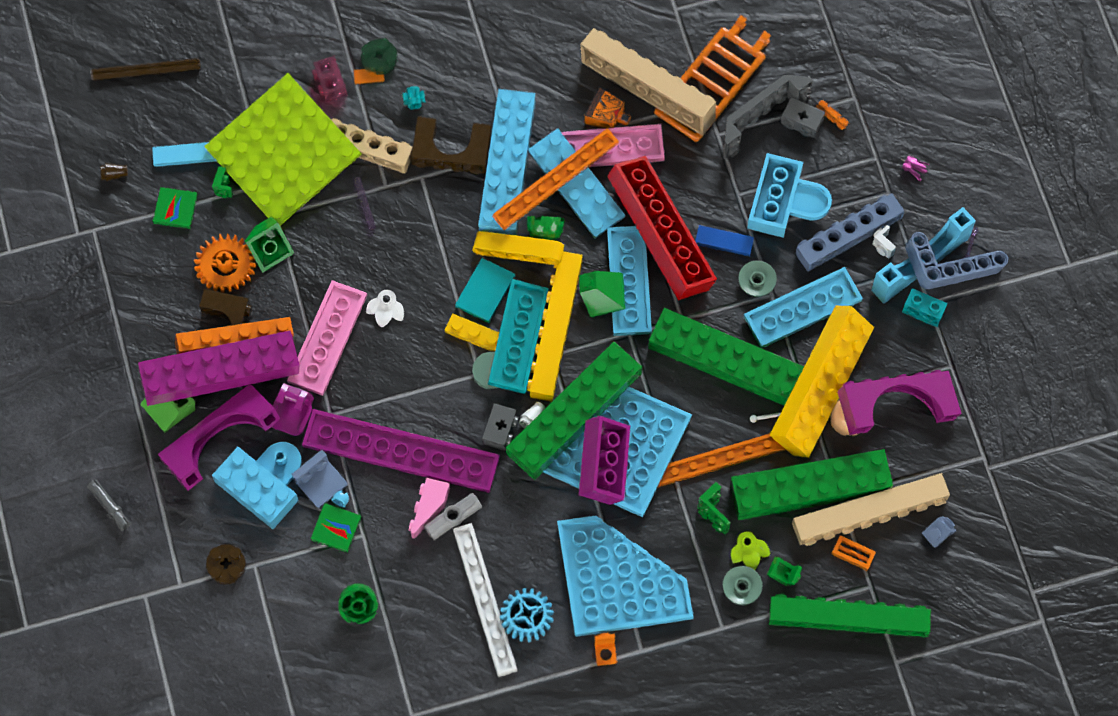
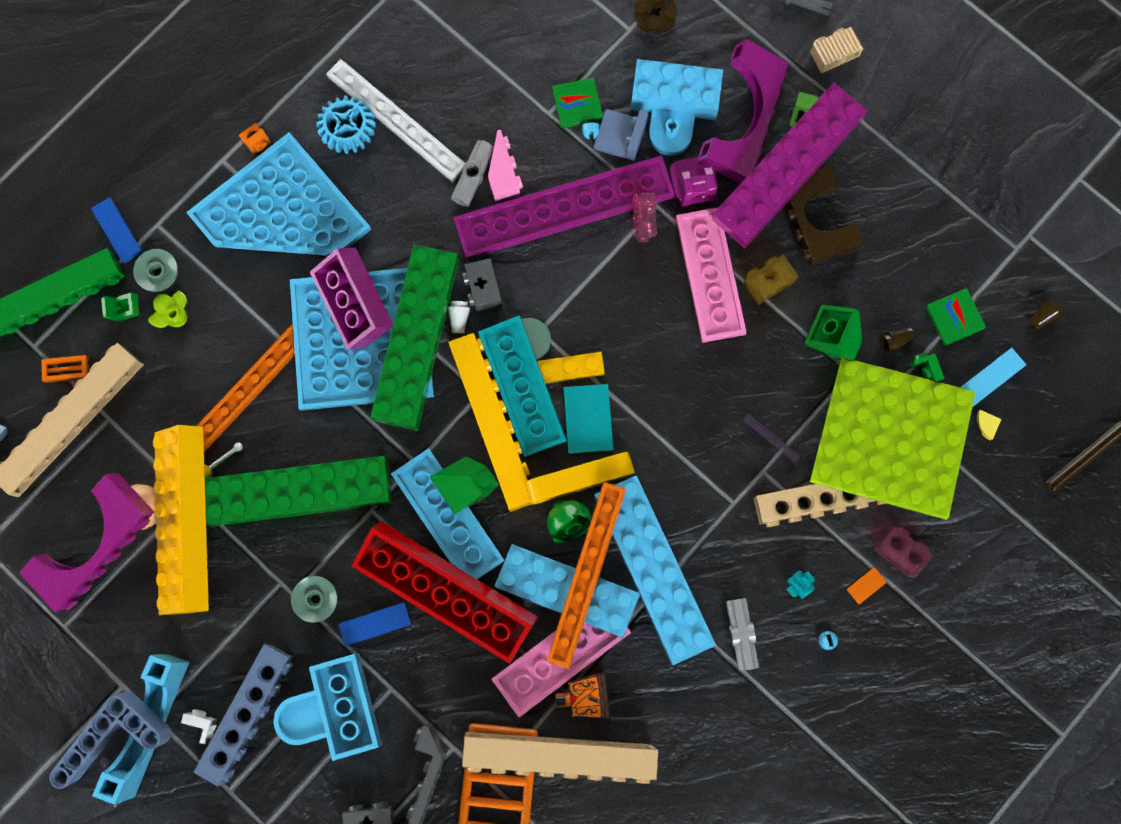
camera: 150 degrees right, 10 degrees up
(112, 447) = (836, 49): none -> tan brick
(209, 126) = (987, 424): none -> light yellow tile
(220, 250) = (877, 278): orange gear -> none
(223, 335) = (797, 208): orange arch -> none
(229, 215) = (894, 340): none -> dark brown cone
(279, 302) = (763, 289): none -> clear yellow brick
(348, 402) = (644, 216): none -> clear pink bracket
(357, 603) = (509, 41): green cylinder -> none
(375, 47) = (884, 612): clear green plate -> none
(385, 311) = (672, 337): white plate -> none
(423, 57) = (823, 641): none -> medium azure hinge
(472, 159) = (746, 529): dark brown arch -> none
(475, 91) = (742, 634): none -> light grey piece
(707, 509) = (229, 328): green bracket -> none
(756, 639) = (117, 230): none -> blue tile
(802, 307) = (249, 597): medium azure plate -> none
(810, 484) = (138, 409): green brick -> none
(924, 307) = (117, 672): teal brick -> none

